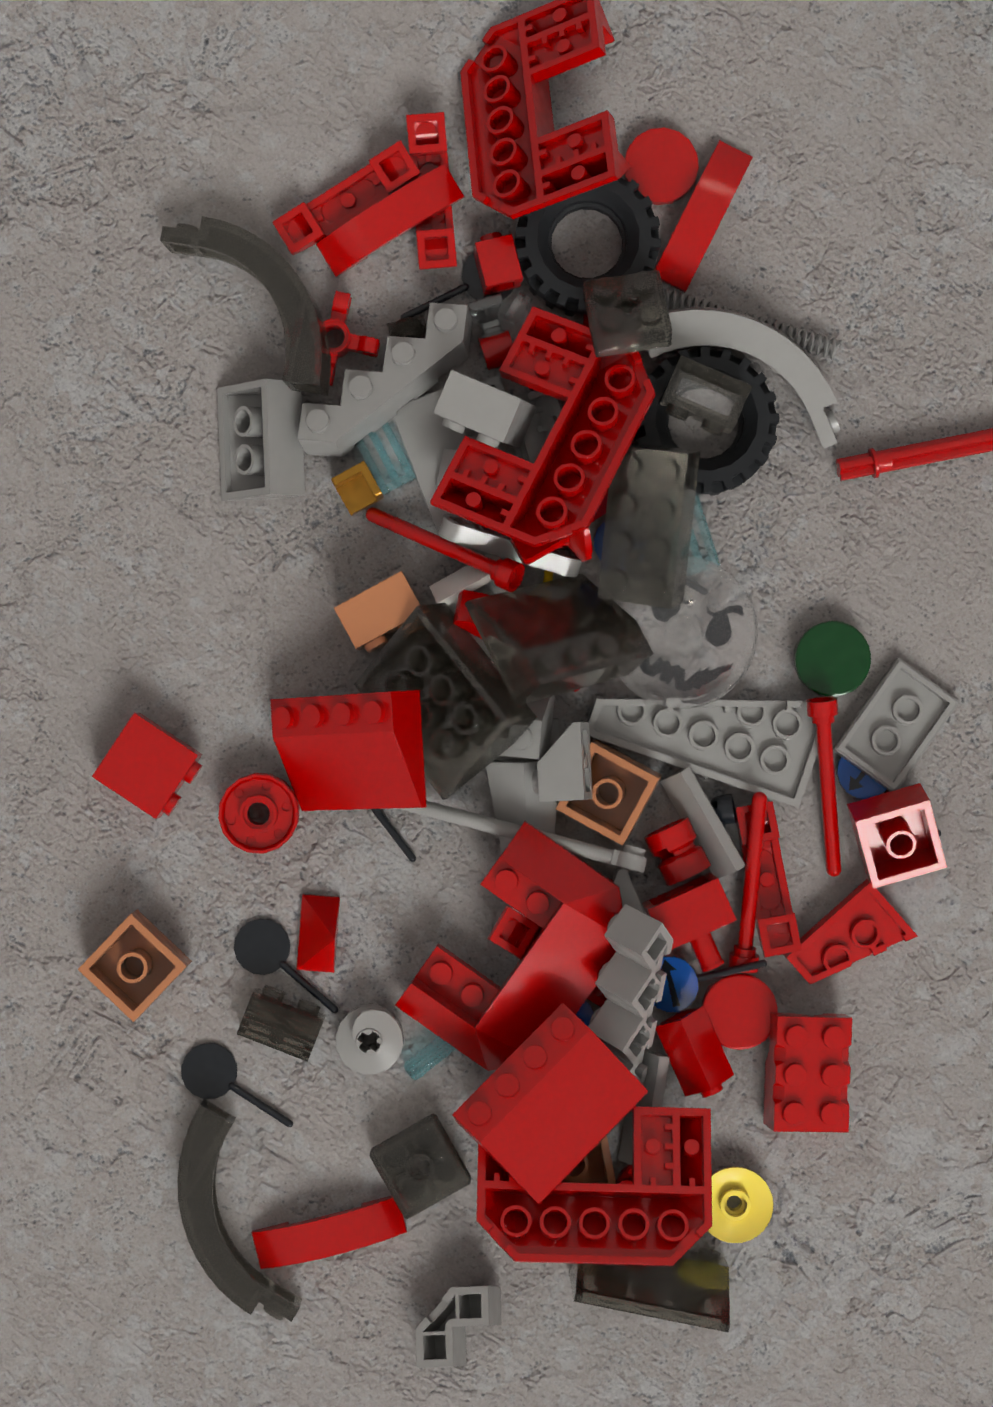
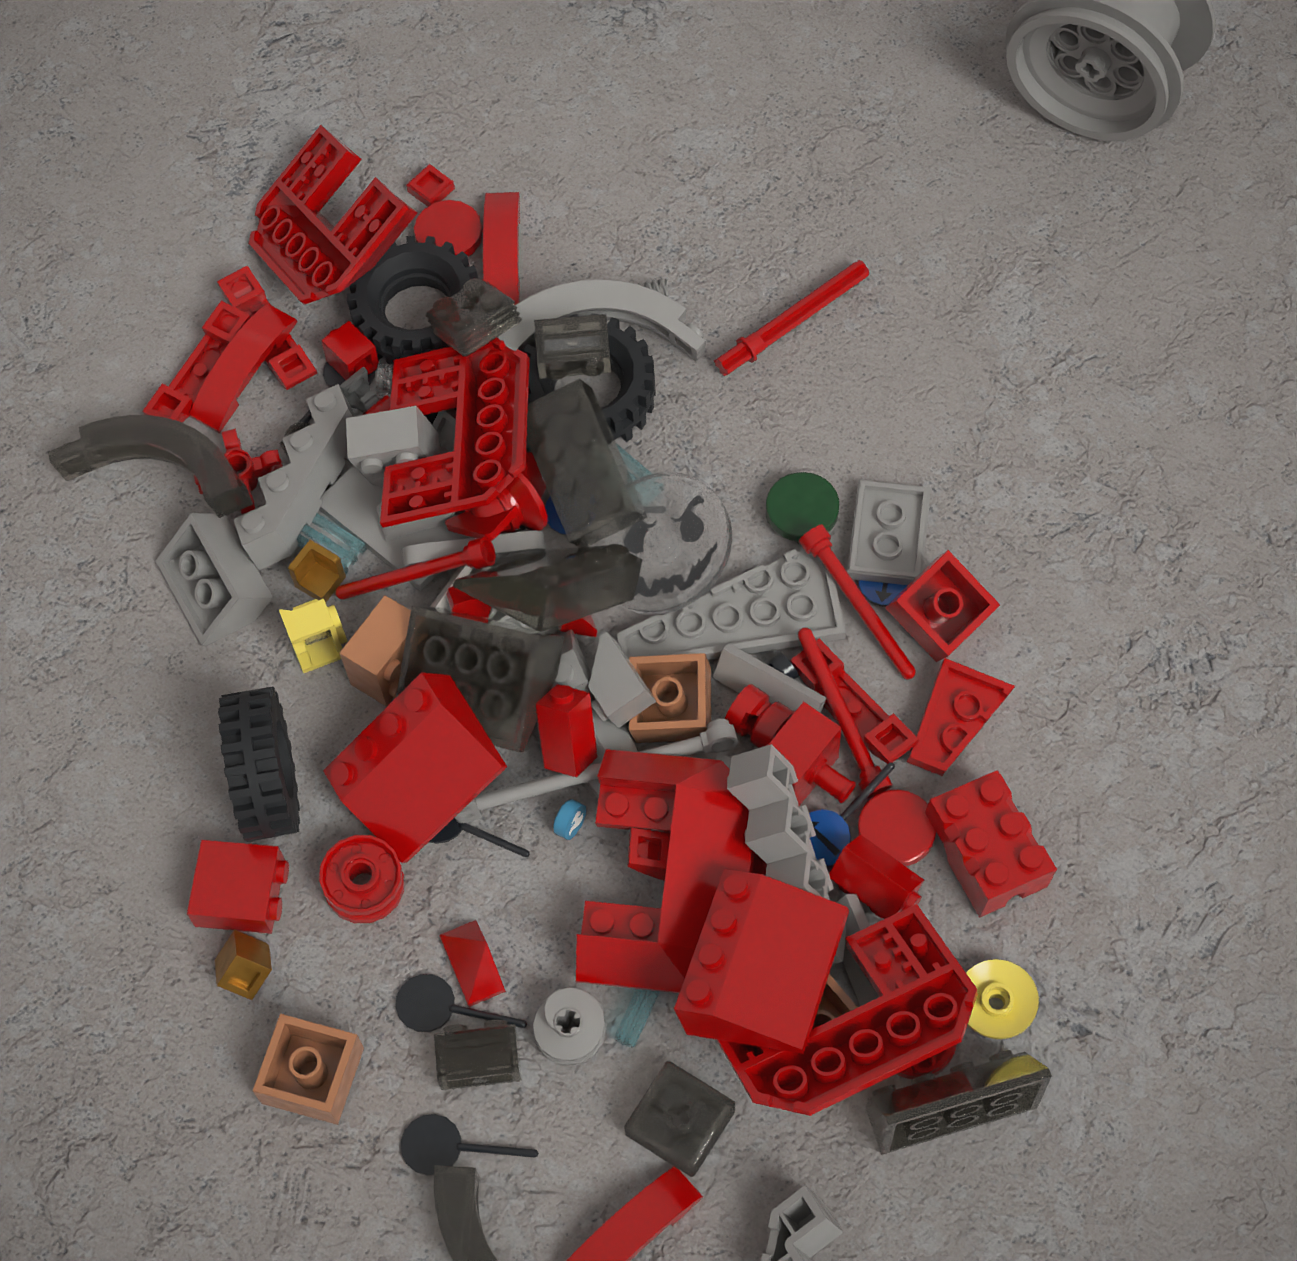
camera: 20 degrees left, 25 degrees down
(122, 836) = (243, 964): none -> pearl gold panel
(213, 678) = (259, 764): none -> black tyre
(324, 558) = (314, 633): none -> light yellow window
(464, 852) = (569, 819): none -> dark azure tile
(498, 790) = (566, 730): none -> red brick
(669, 101) = (430, 186): none -> red tile

